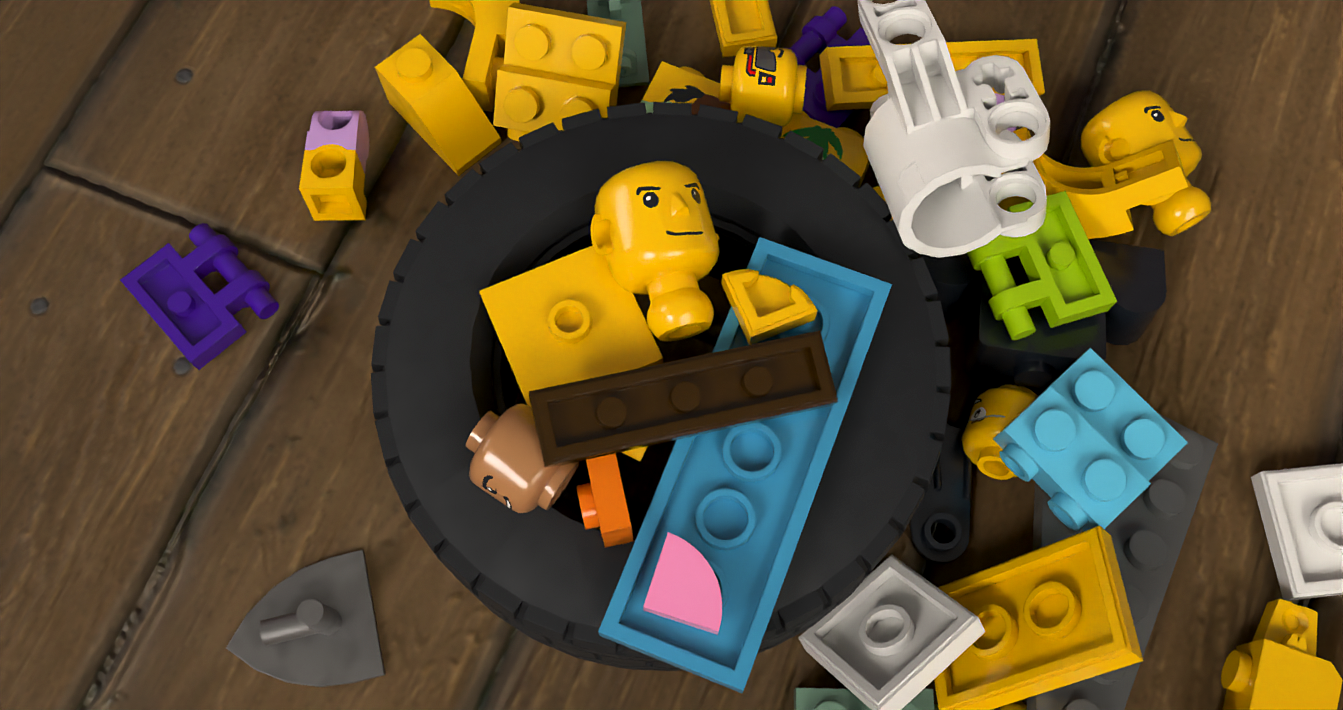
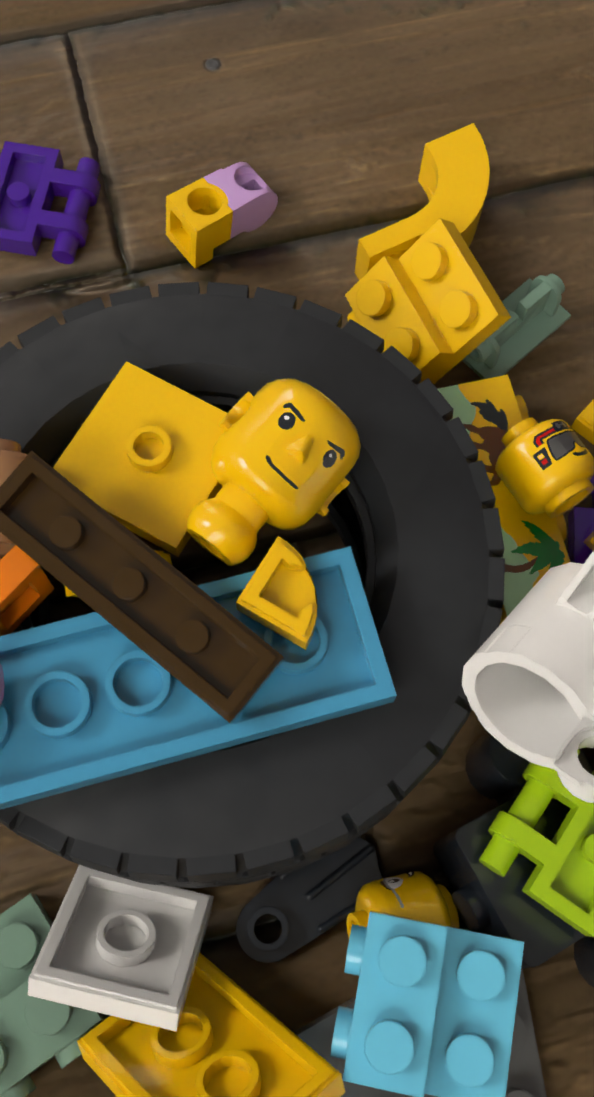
camera: 50 degrees right, 0 degrees up
(437, 104) = (328, 239): yellow slope -> none

